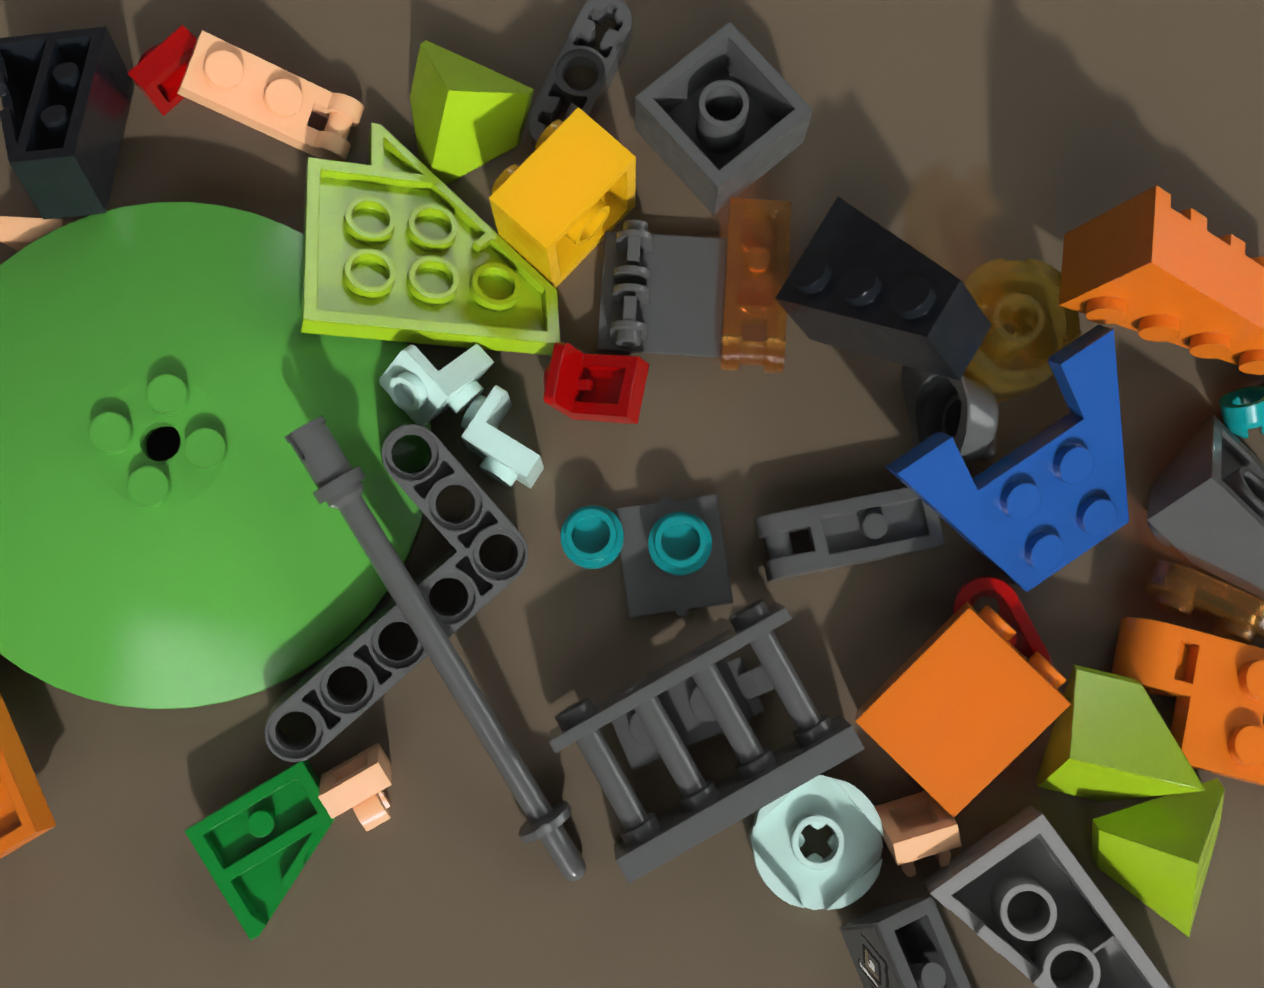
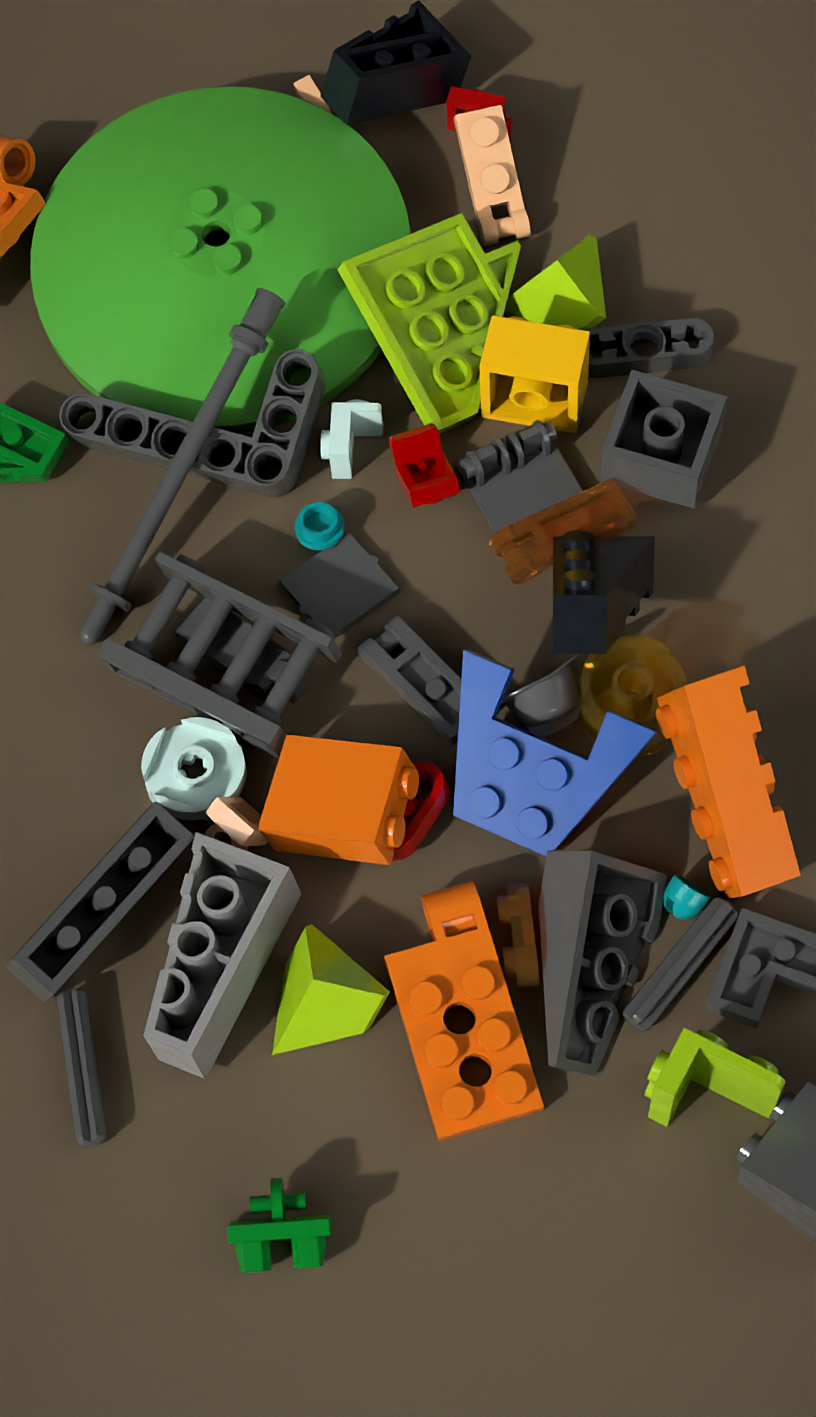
camera: 65 degrees right, 15 degrees down
(360, 786) = (68, 479): light nougat tile -> none
(428, 392) = (357, 376): light aqua bracket -> none
(679, 543) = (346, 577): teal plate -> none
(1113, 743) = (370, 900): lime slope -> none

